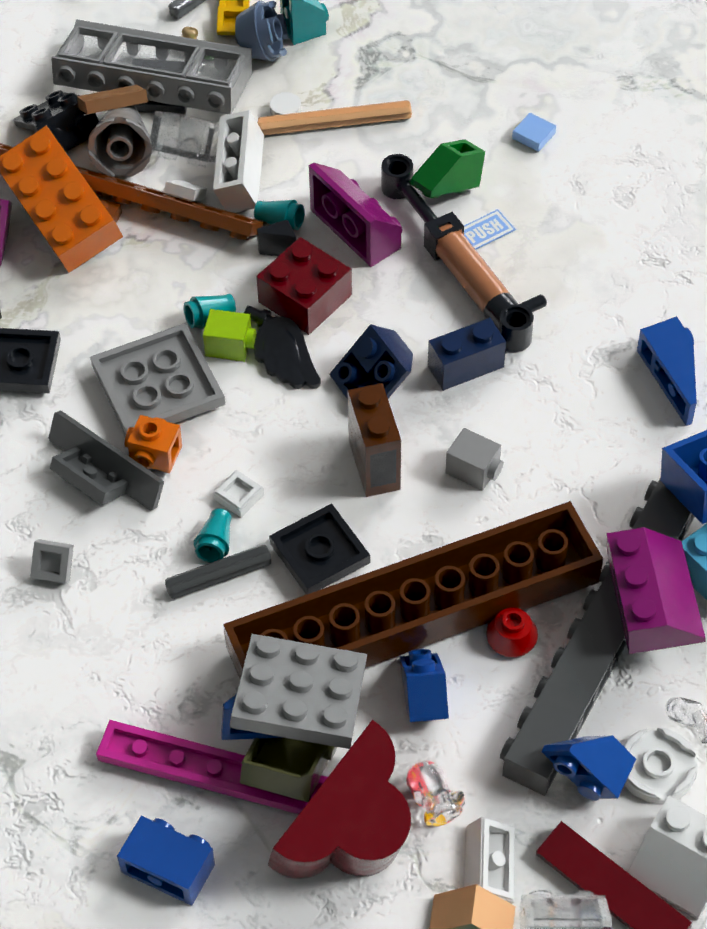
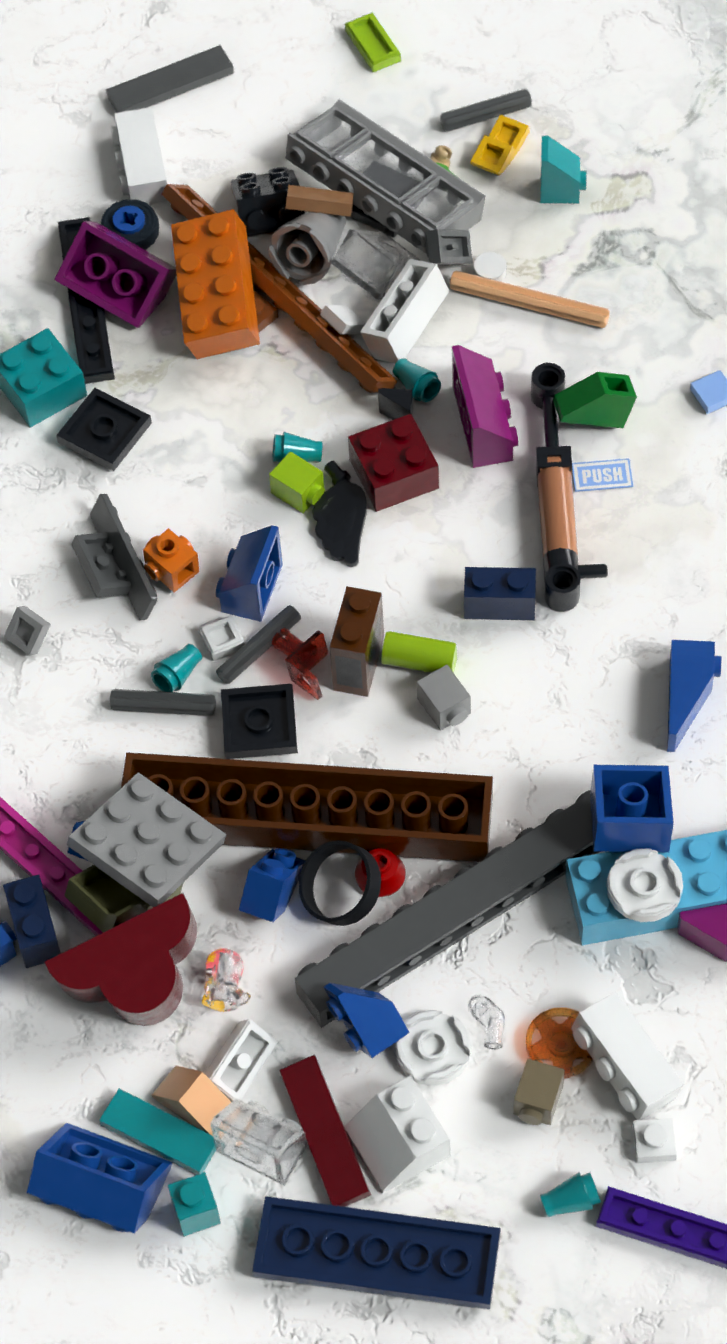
camera: 30 degrees right, 5 degrees up
(158, 378) = (211, 497): light grey plate -> none
(218, 820) = (32, 920): none -> dark blue brick
(235, 425) = (251, 574): none -> blue slope
(246, 97) = (449, 247): none -> dark grey plate
(262, 31) = (508, 180): sand blue cone -> none
(276, 485) = (257, 645): none -> dark grey axle
(325, 478) = (302, 658): none -> clear red bracket
(374, 359) = (408, 569): dark blue slope -> none
(430, 430) = (418, 652): none -> lime brick
(451, 647) = (308, 874): none -> black tyre
(653, 590) = (510, 891): magenta slope -> none

